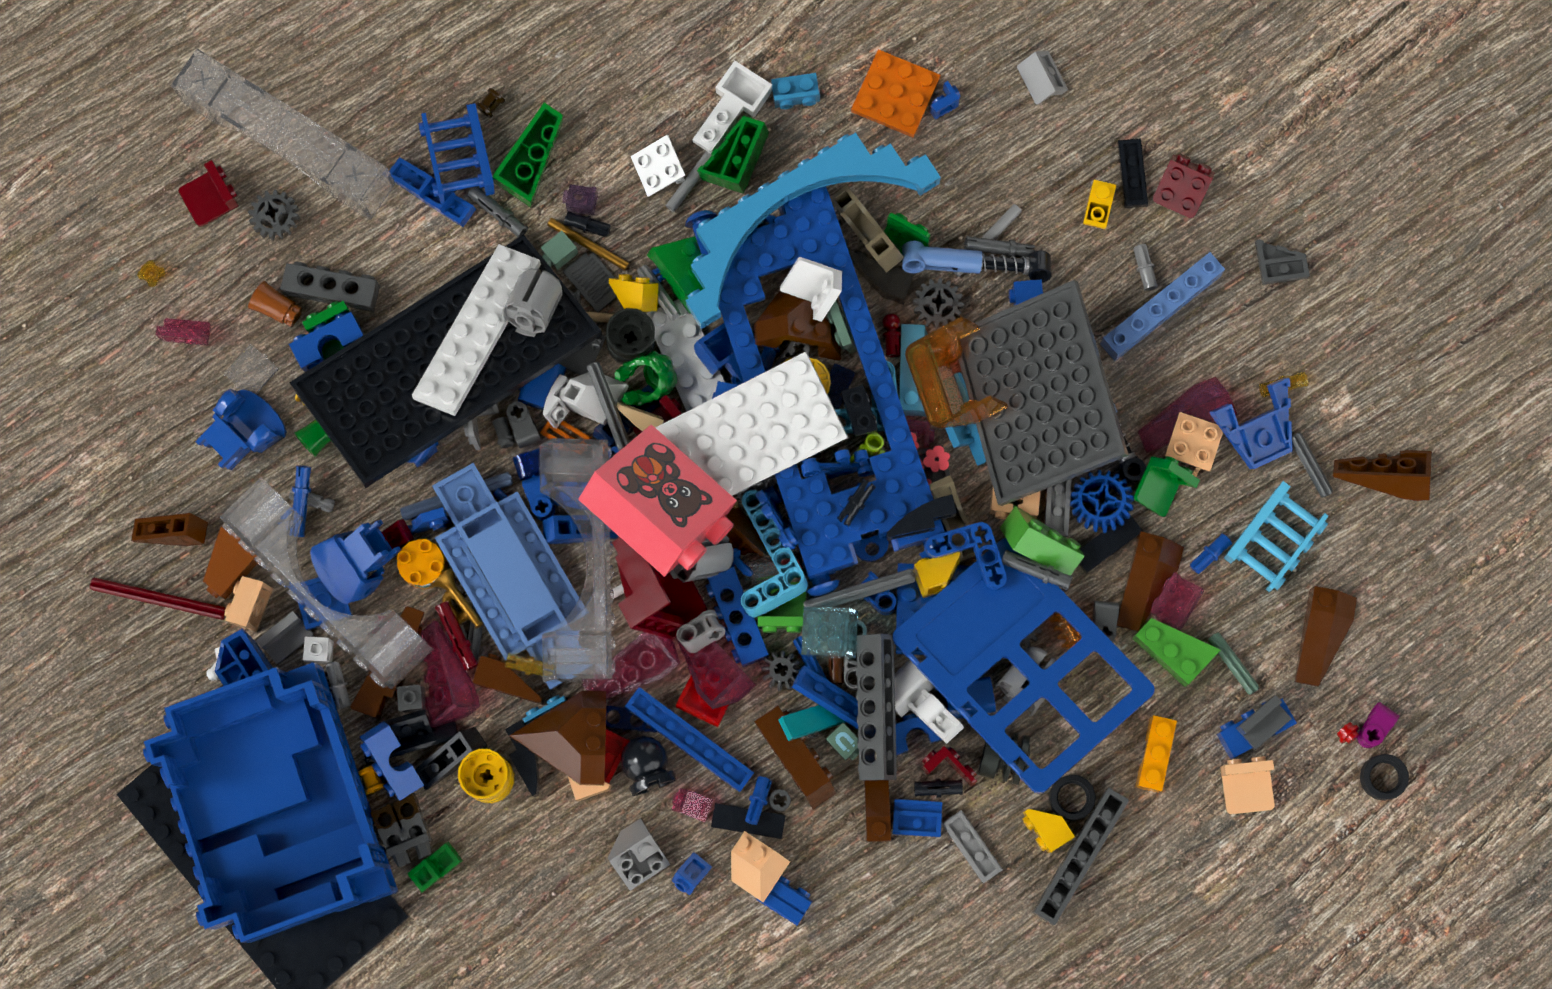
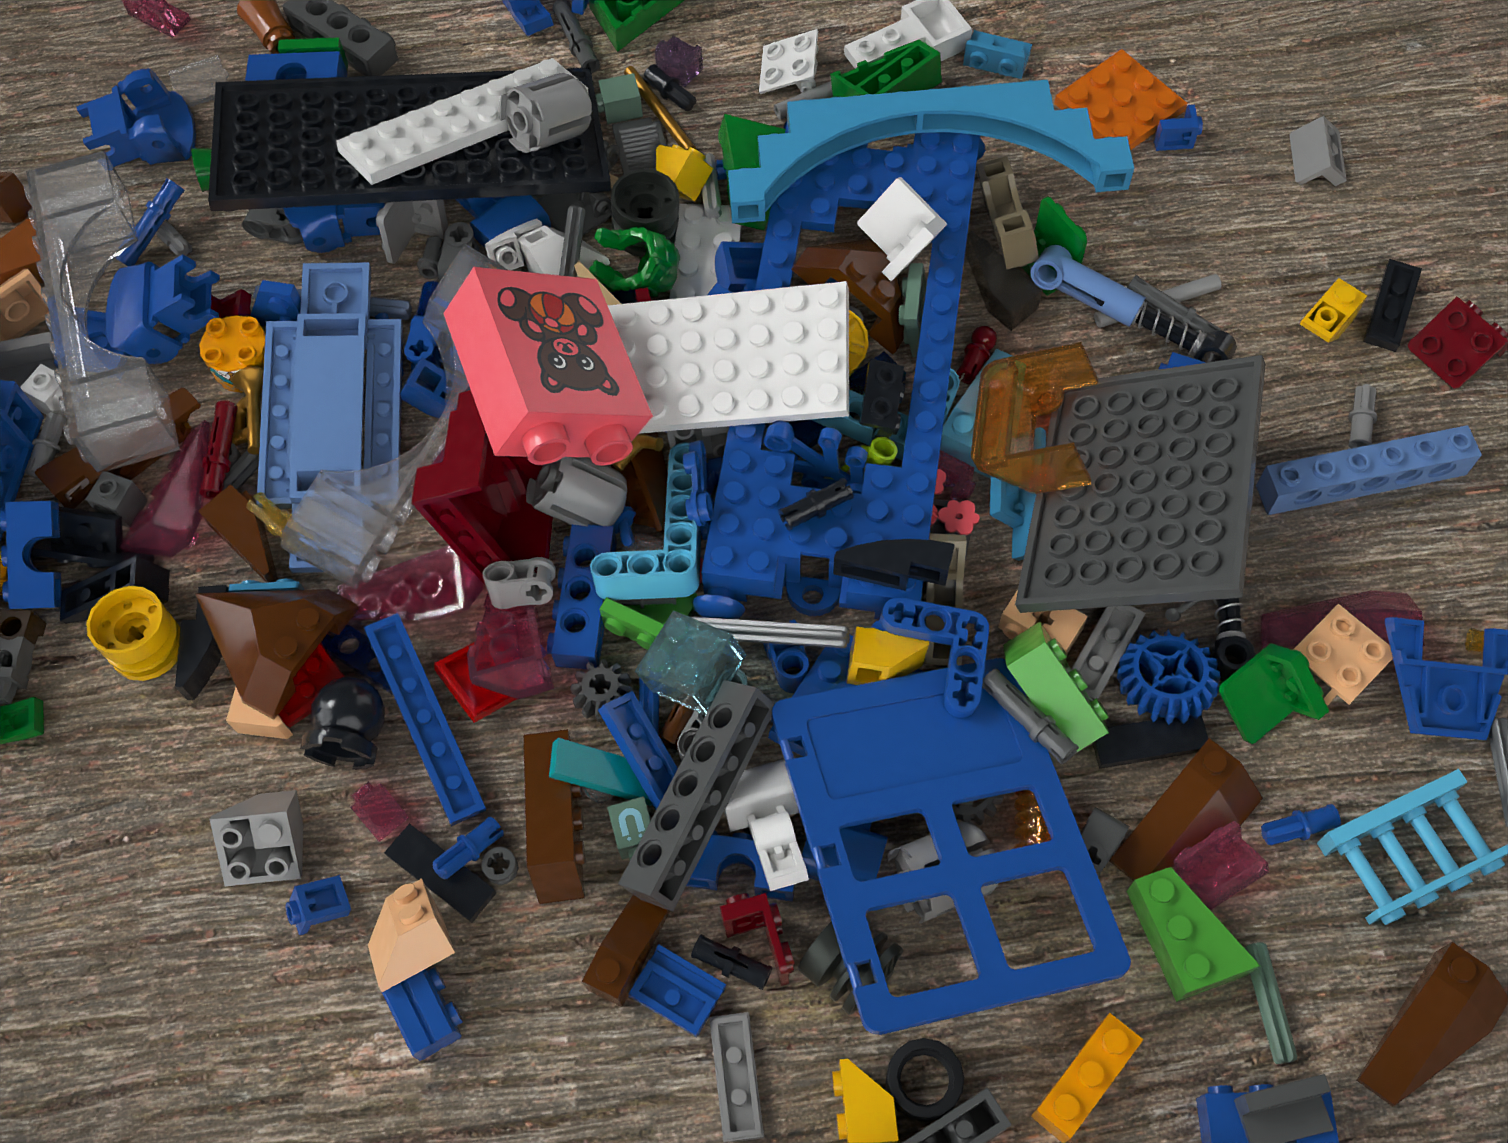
camera: 25 degrees right, 15 degrees down
(929, 303) = (1055, 331): dark grey gear -> none

